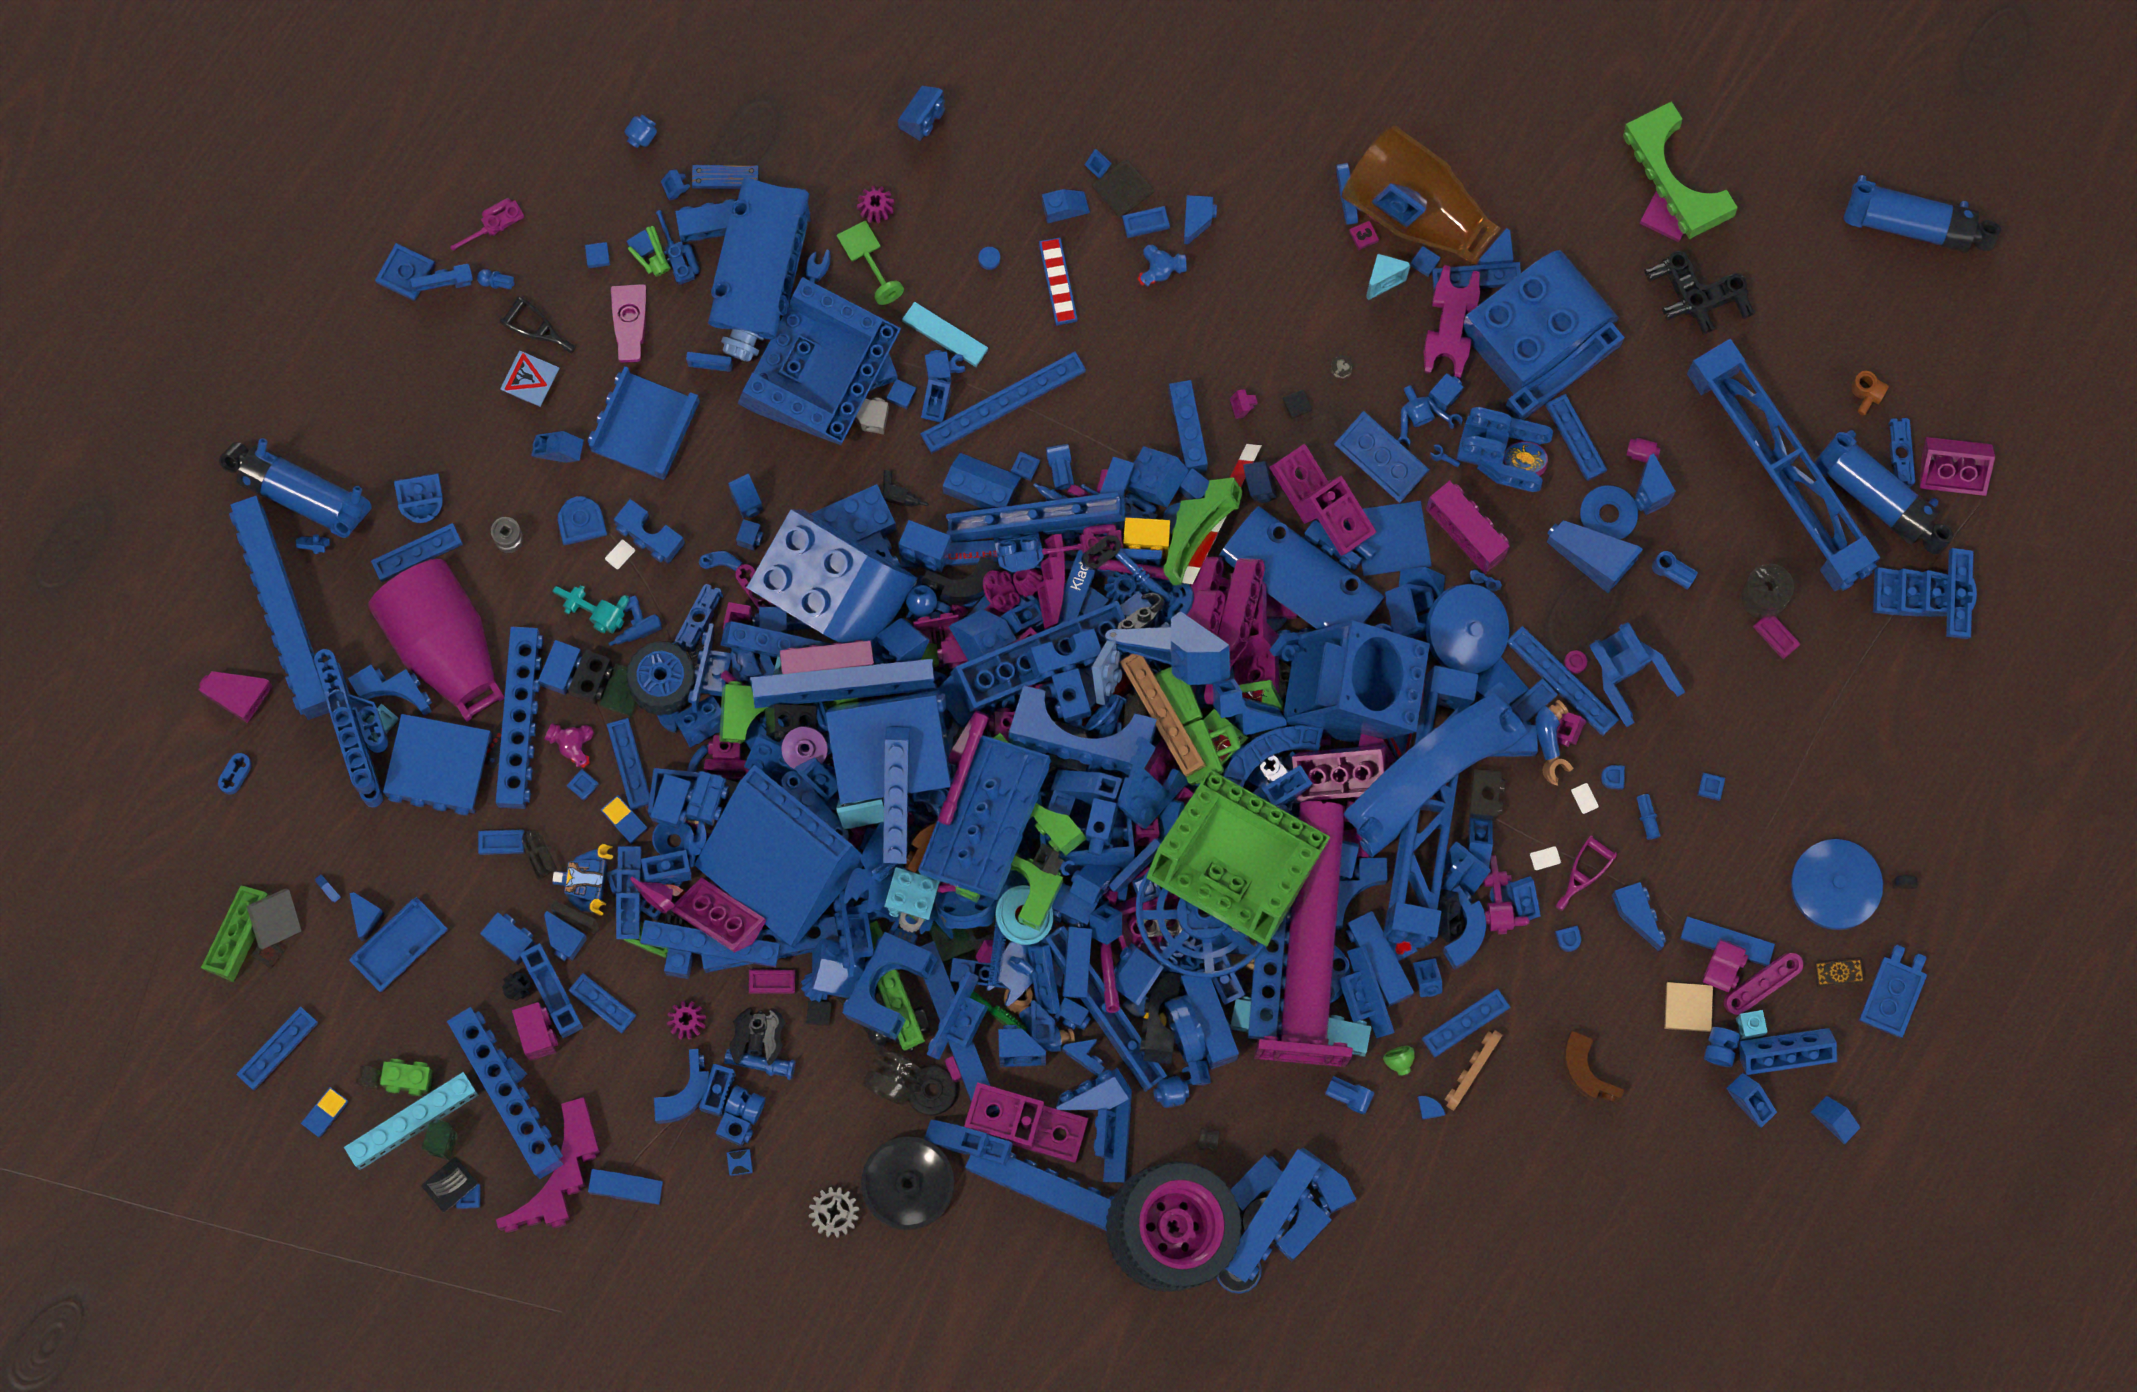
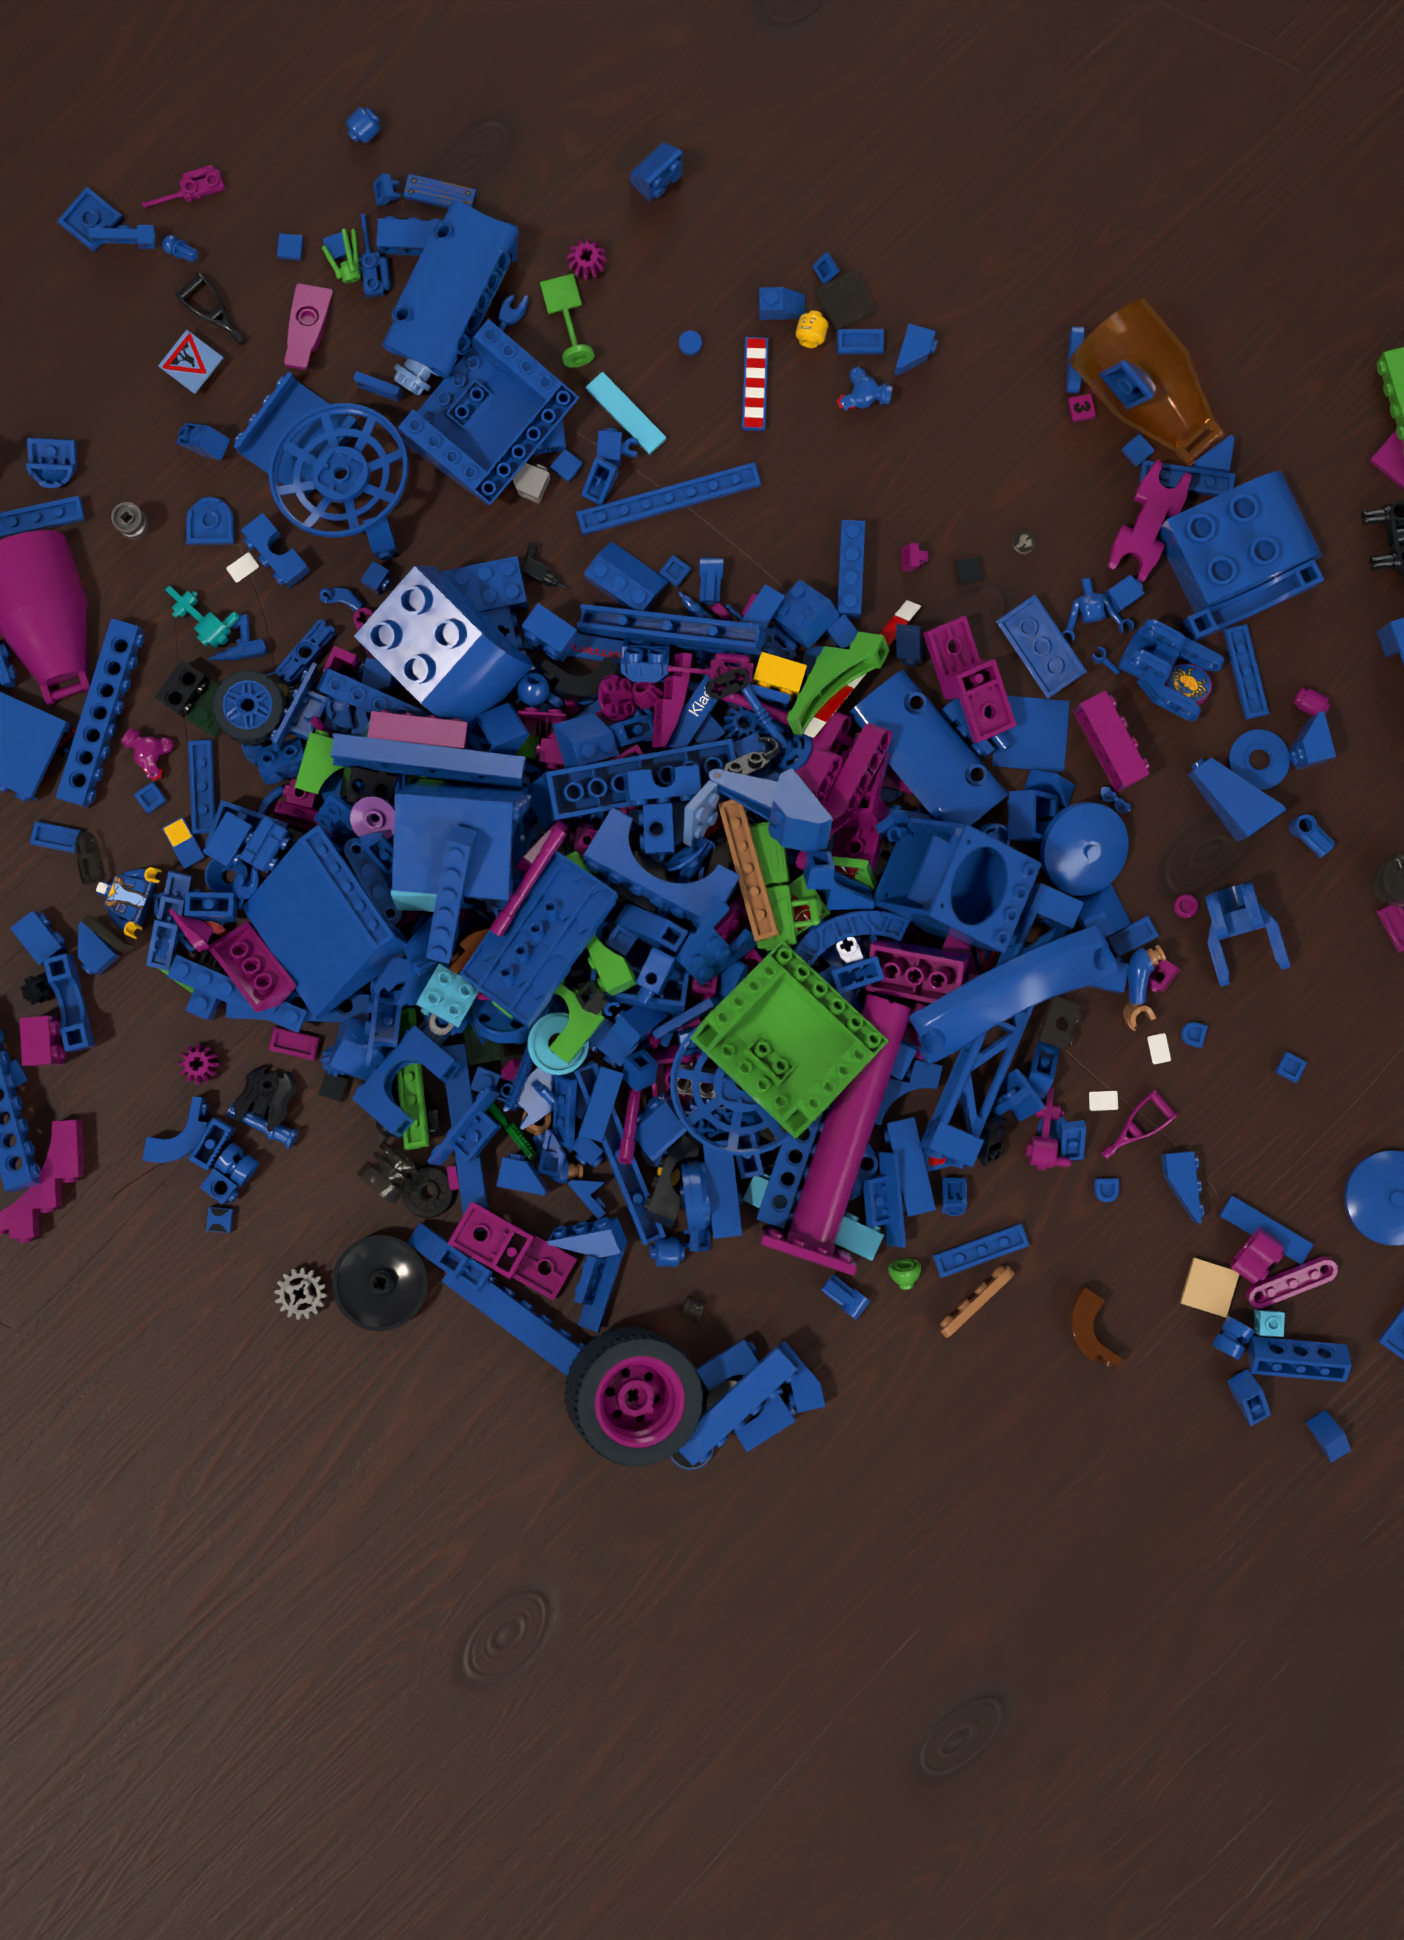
camera: 10 degrees right, 10 degrees up
(560, 667) = (153, 671): blue brick -> none
(602, 1003) = (119, 1025): blue tile -> none
(625, 1187) = (98, 1218): blue slope -> none
(690, 434) = (332, 462): none -> blue dish
(1098, 221) = (811, 329): none -> yellow head
(1386, 274) = (1094, 455): medium azure slope -> none
(1429, 1108) = (922, 1328): blue tile -> none
(1466, 946) = (1011, 1162): blue arch -> none
(1562, 681) = (1167, 923): blue tile -> none
(1648, 816) = (1219, 1083): blue axle -> none
(1839, 972) = (1370, 1288): tile -> none

